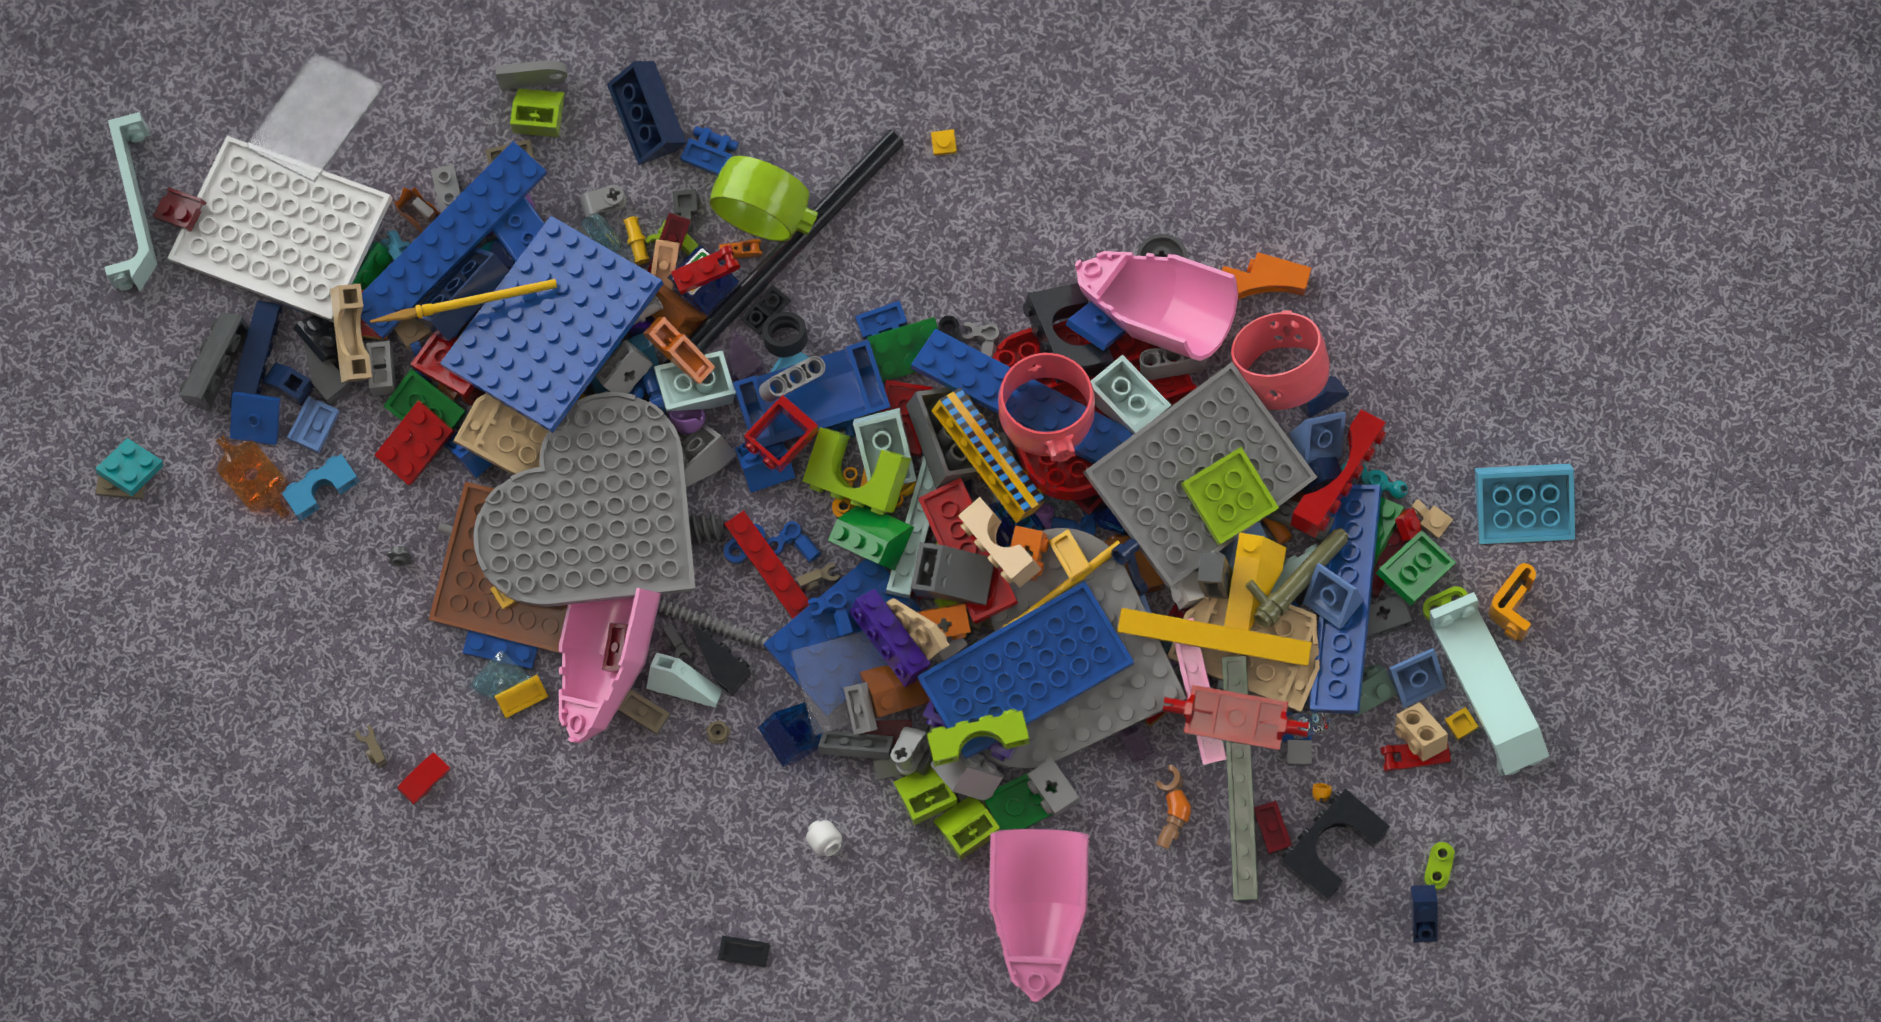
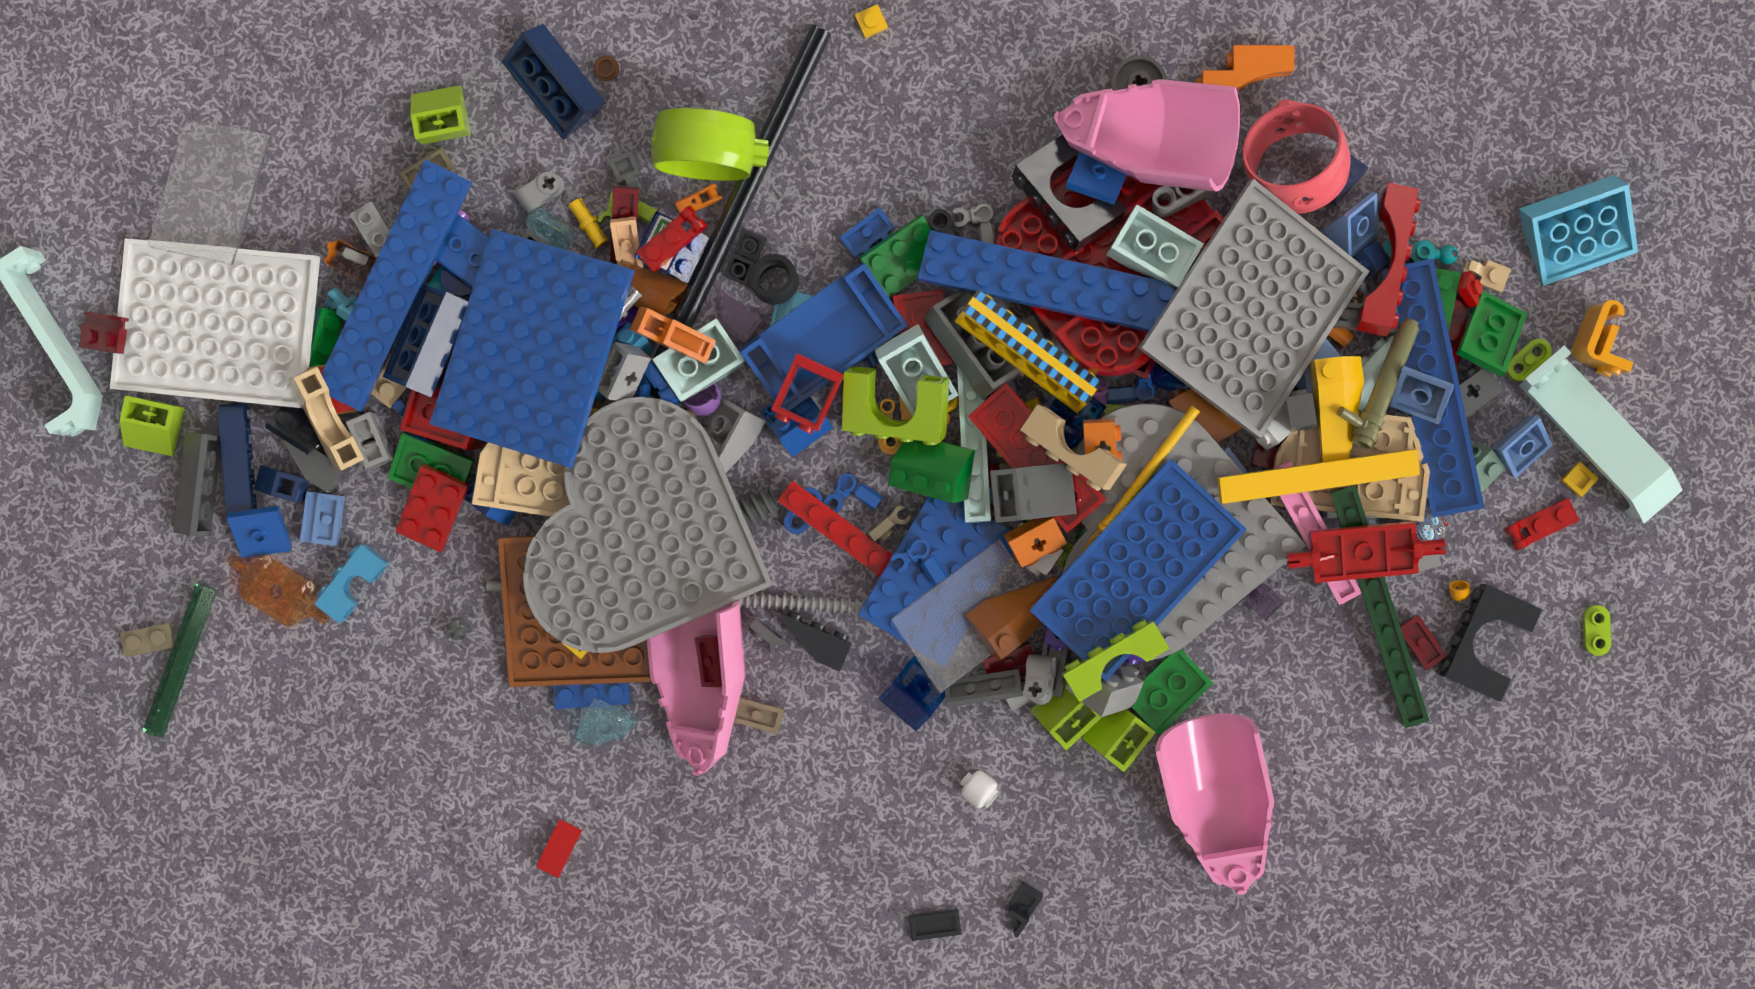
camera: 25 degrees left, 15 degrees up
(129, 467) = (149, 621): teal plate -> none
(143, 509) = (179, 660): none -> clear green piece
(192, 299) = (150, 425): none -> lime slope
(374, 753) = (500, 837): dark tan plate -> none
(430, 309) = (399, 374): yellow piece -> none
(521, 696) = (629, 736): yellow tile -> none
(530, 74) = (418, 77): light grey tile -> none
(678, 679) = (784, 673): light aqua slope -> none
(697, 115) = (606, 68): none -> reddish brown plate
(707, 157) = (632, 111): blue plate -> none
(718, 726) = (835, 718): dark tan plate -> none
(783, 383) = (789, 333): light grey beam -> none
(830, 958) = (1023, 905): none -> black slope
(860, 708) = (978, 653): light grey plate -> none
(889, 637) = (987, 575): dark purple brick -> none
(922, 630) = (1014, 567): tan plate -> none
(1035, 442) = (1109, 329): coral cylinder -> none
(1051, 775) = (1209, 678): light grey brick -> none
(1070, 555) = (1147, 436): yellow tile -> none
(1125, 554) = (1204, 421): dark blue brick -> none
(1178, 808) = (1323, 654): medium nougat piece -> none
(1229, 496) = (1293, 323): lime plate -> none
(1421, 732) = (1549, 498): tan brick -> none
(1424, 913) = (1597, 683): dark blue slope -> none

